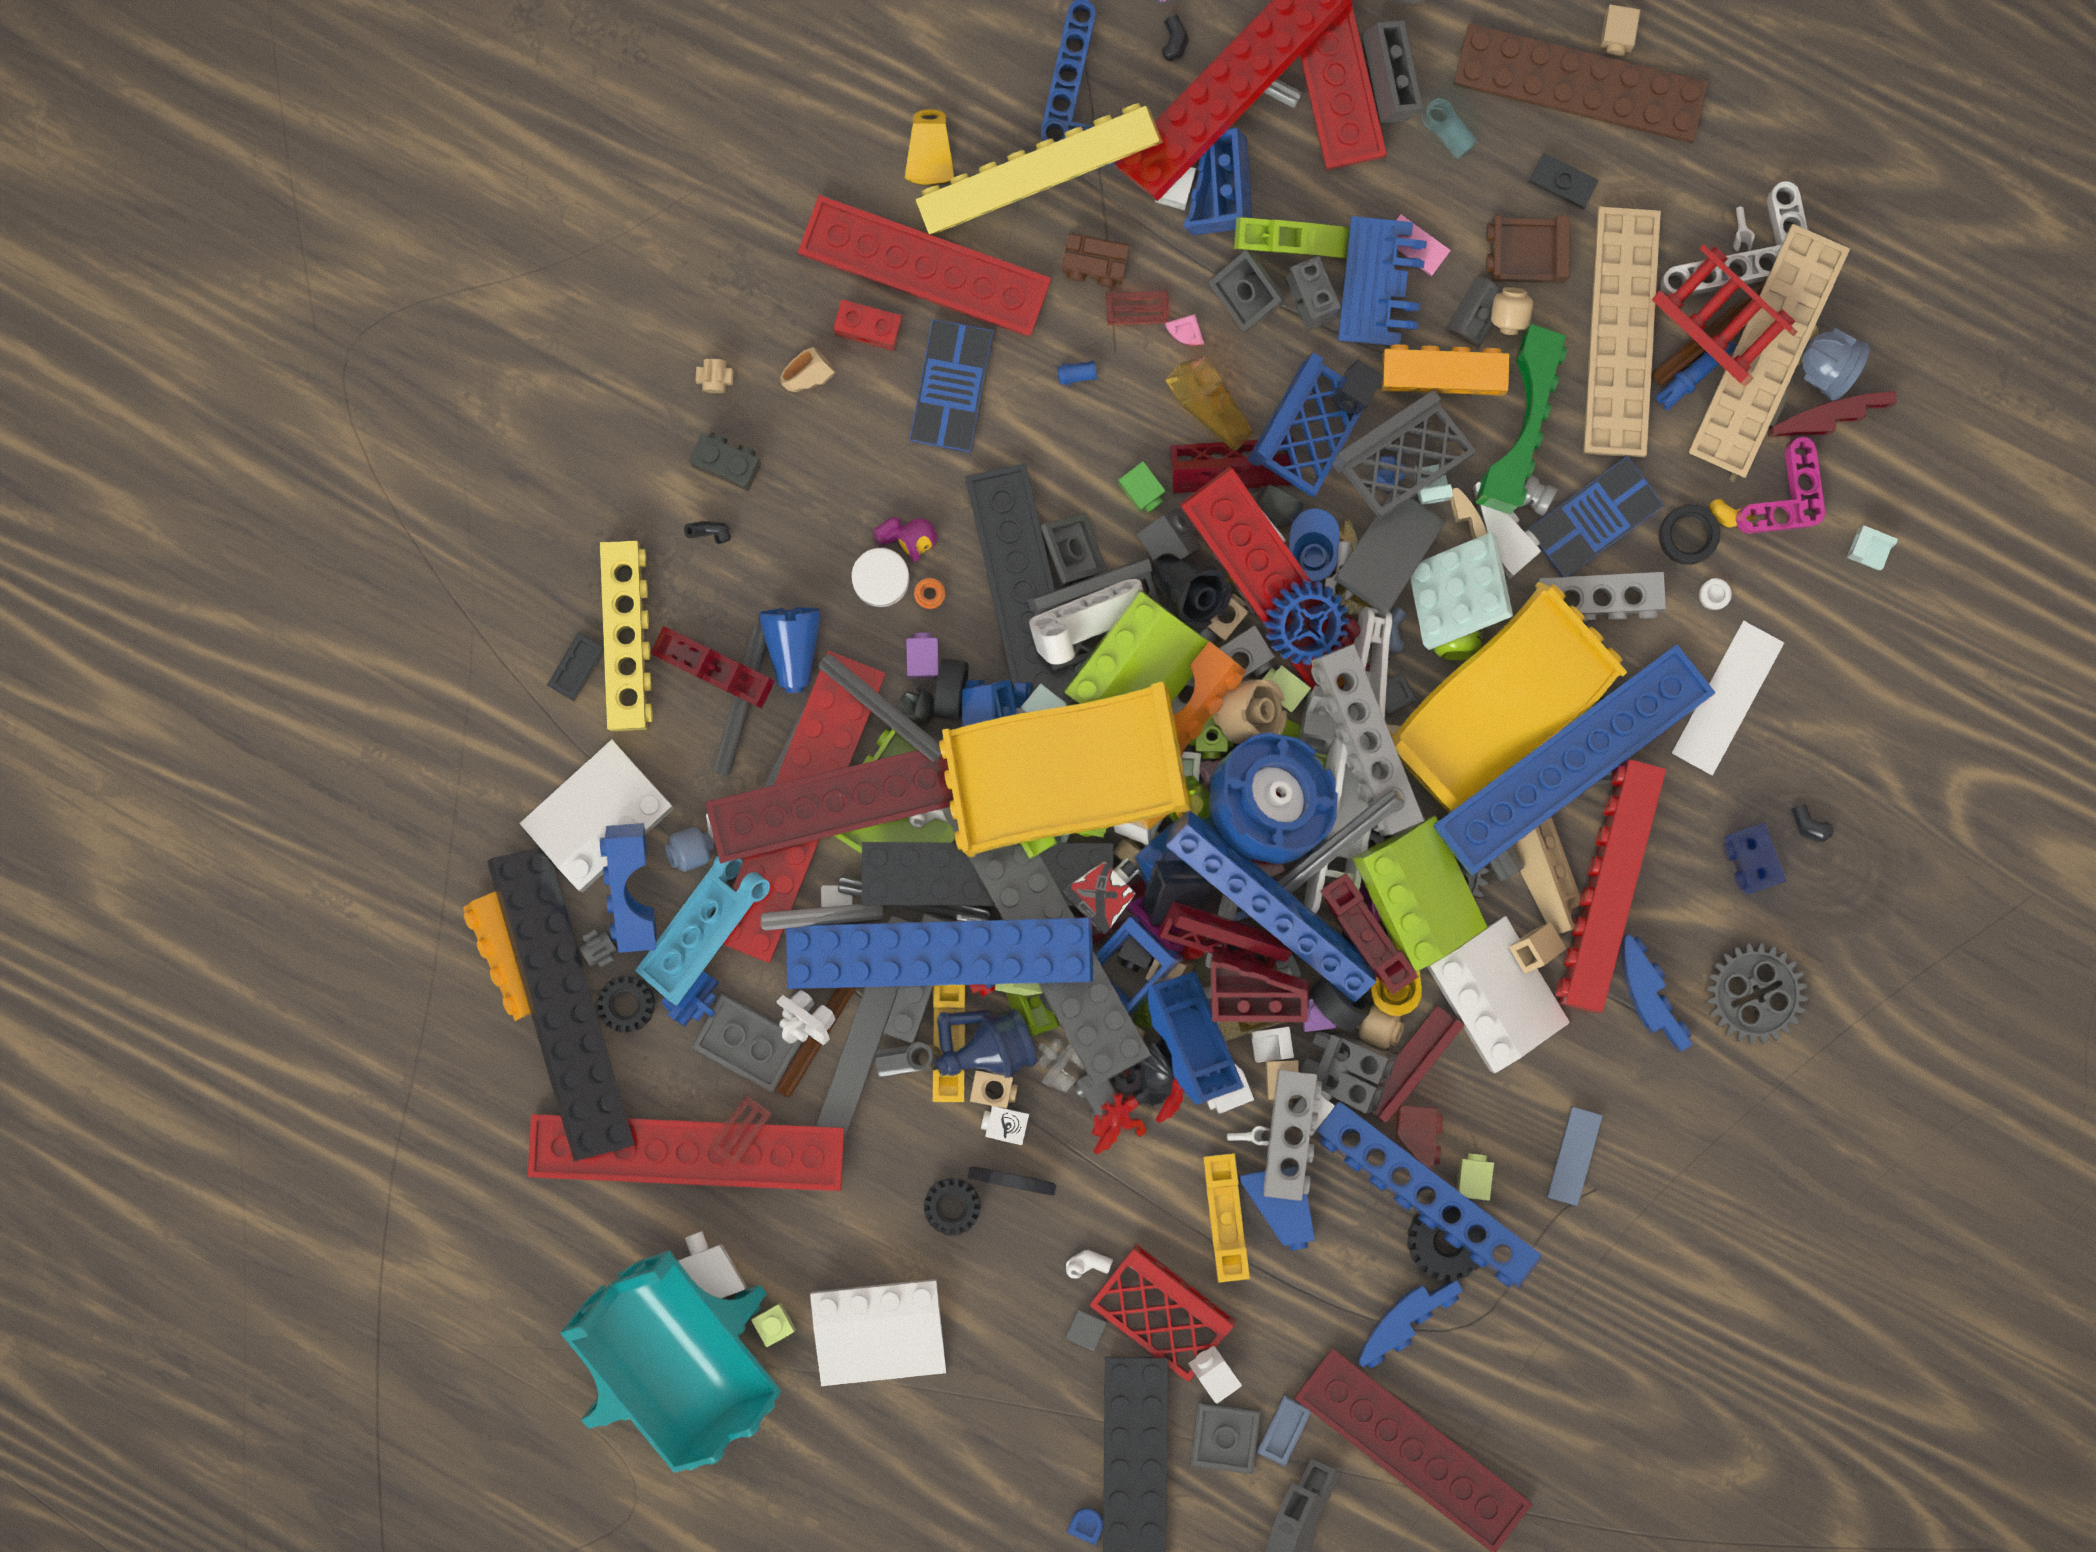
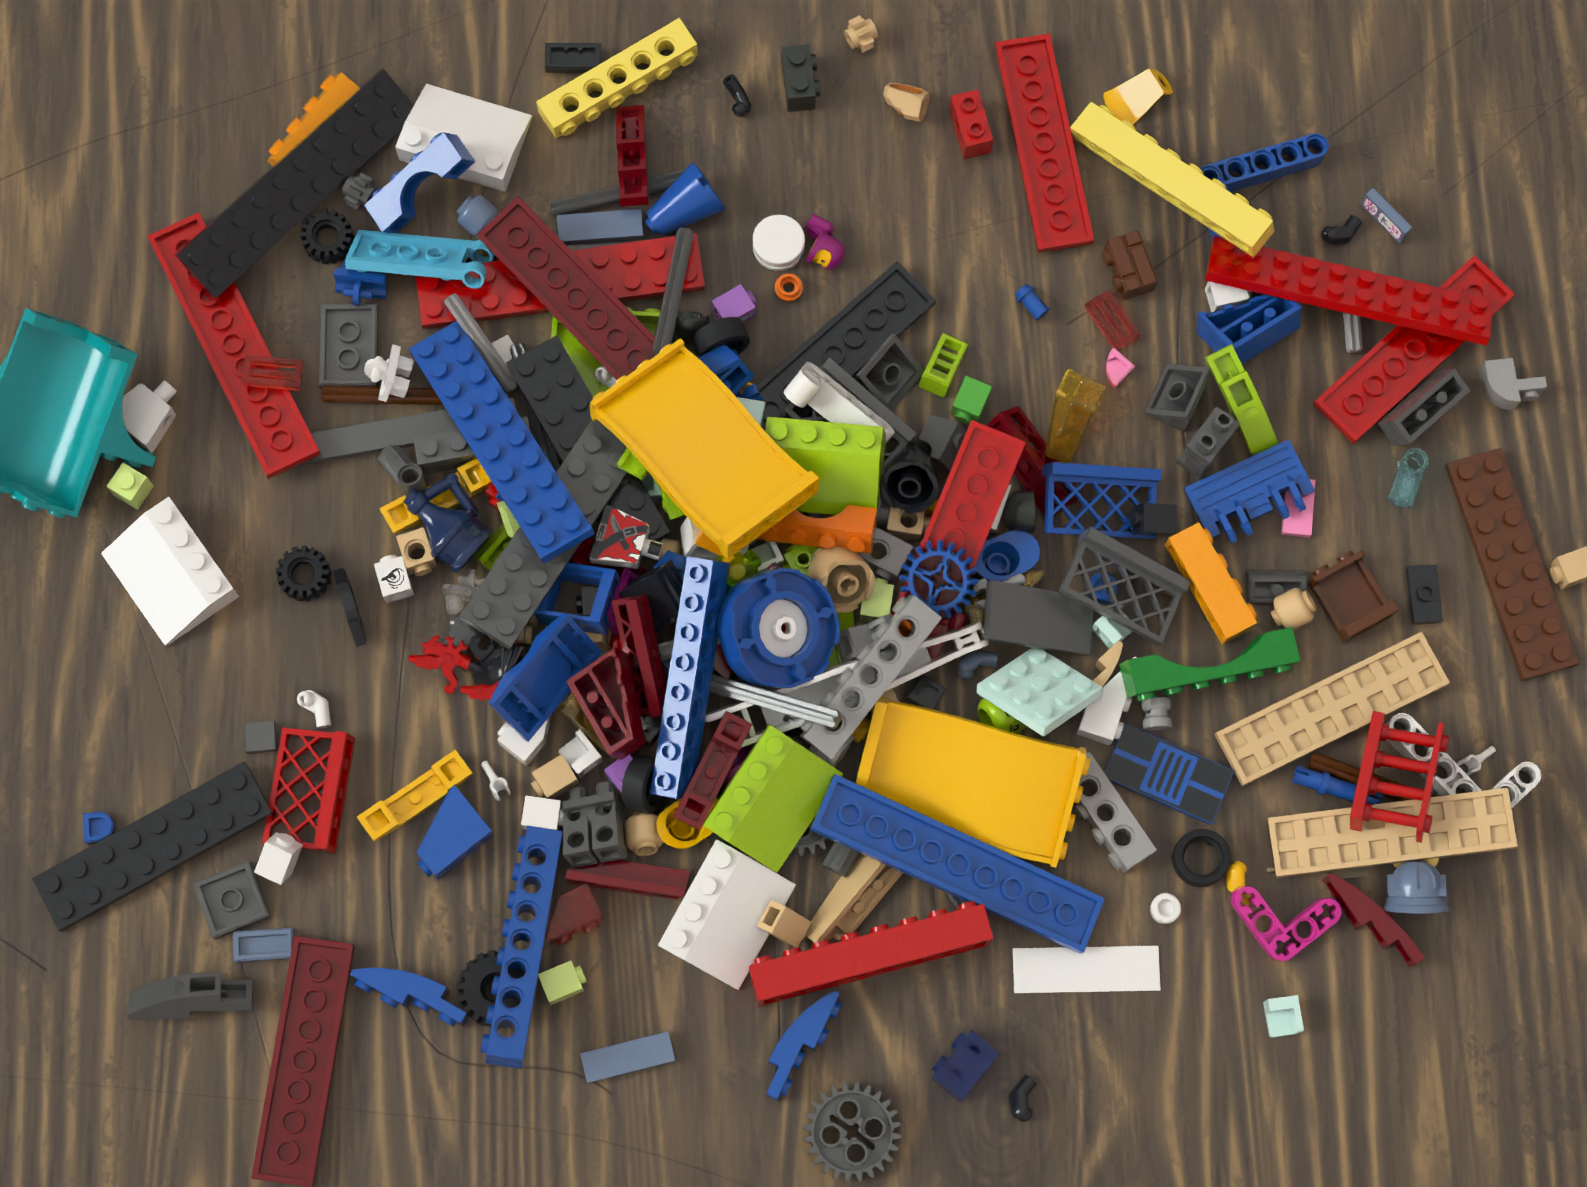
camera: 60 degrees right, 10 degrees down
(764, 738) = (600, 226): none -> sand blue tile
(951, 385) = (962, 214): black tile -> none
(1104, 512) = (935, 380): none -> lime slope
(1275, 1182) = (465, 811): light grey brick -> none

